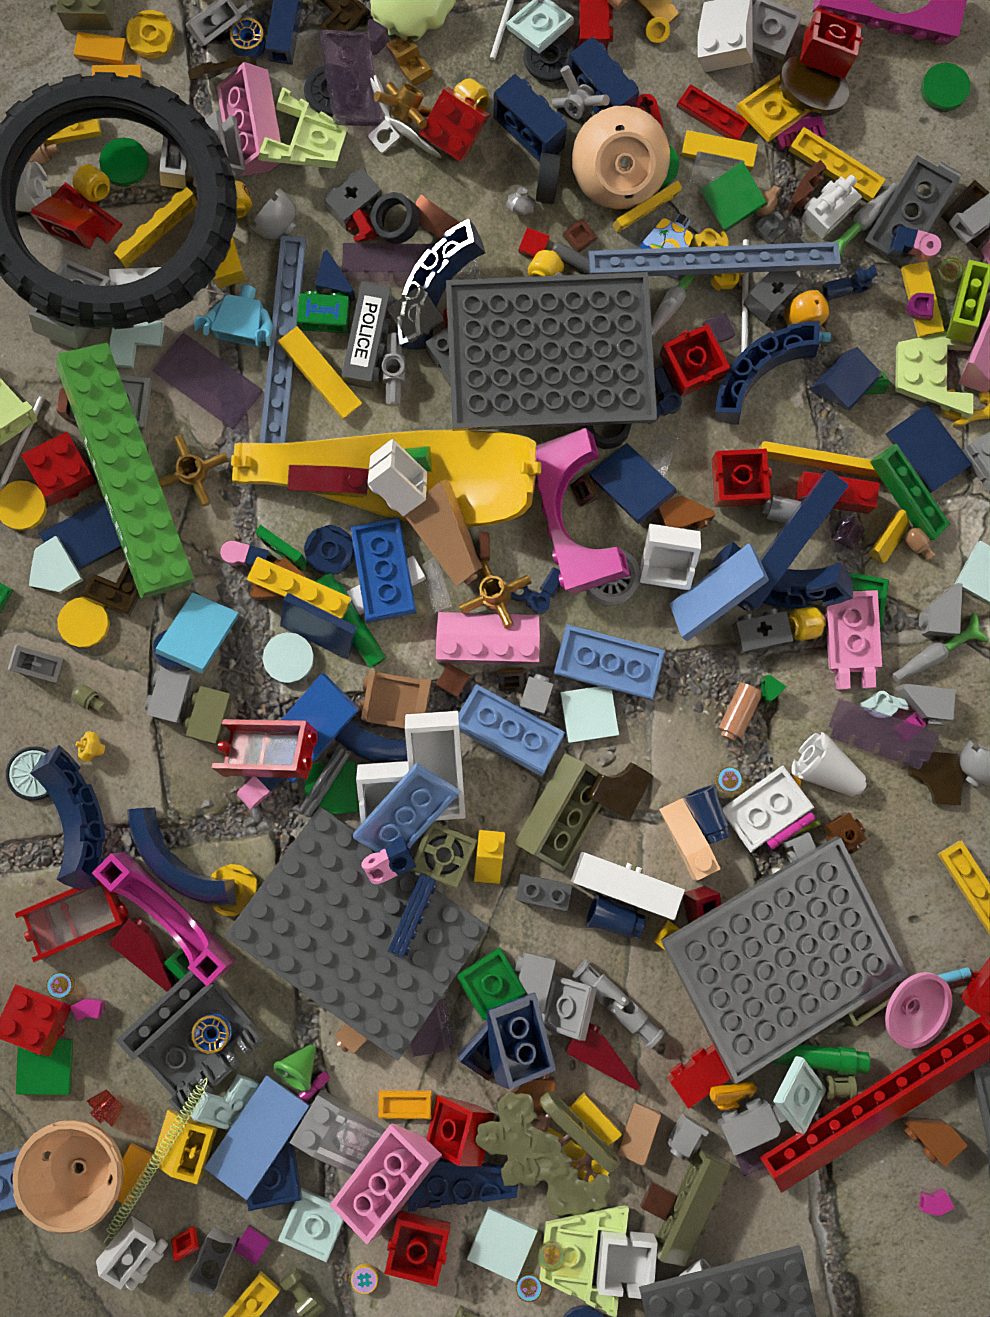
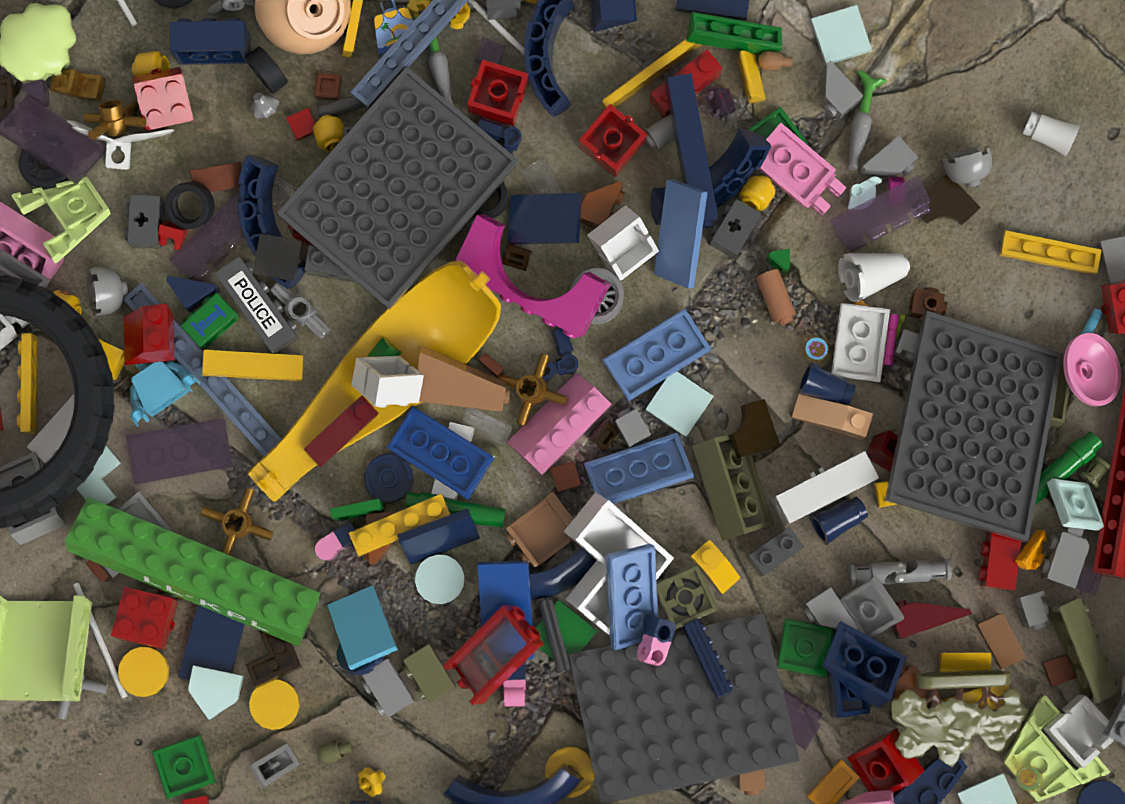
camera: 45 degrees left, 0 degrees up
(271, 277) = (149, 335): none -> red slope

